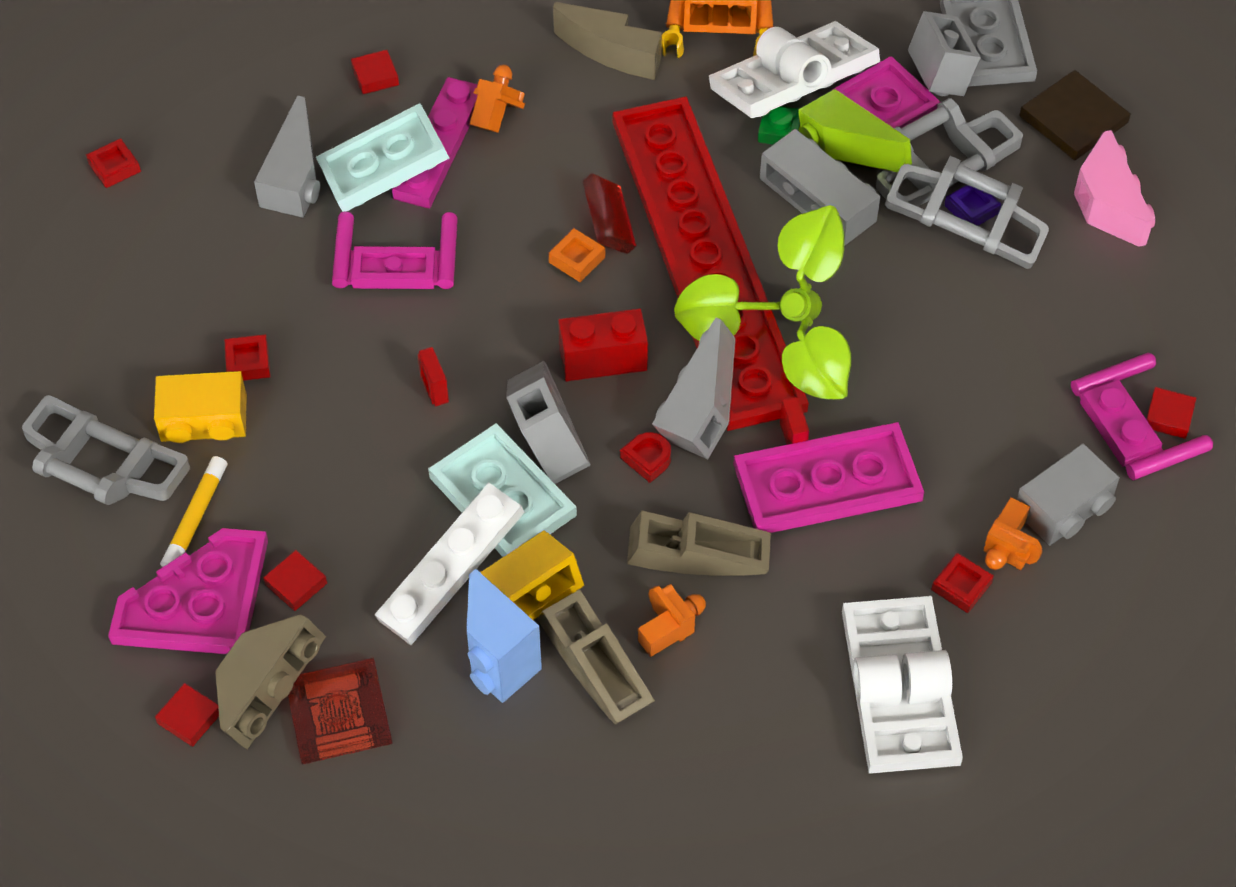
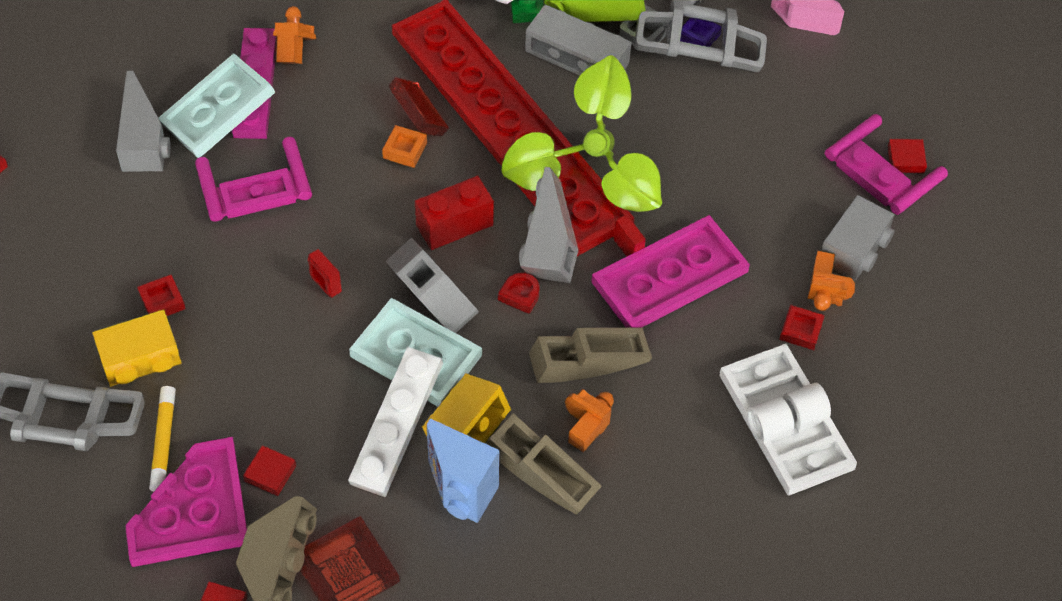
camera: 20 degrees left, 0 degrees up
(375, 71) = (180, 37): red tile -> none

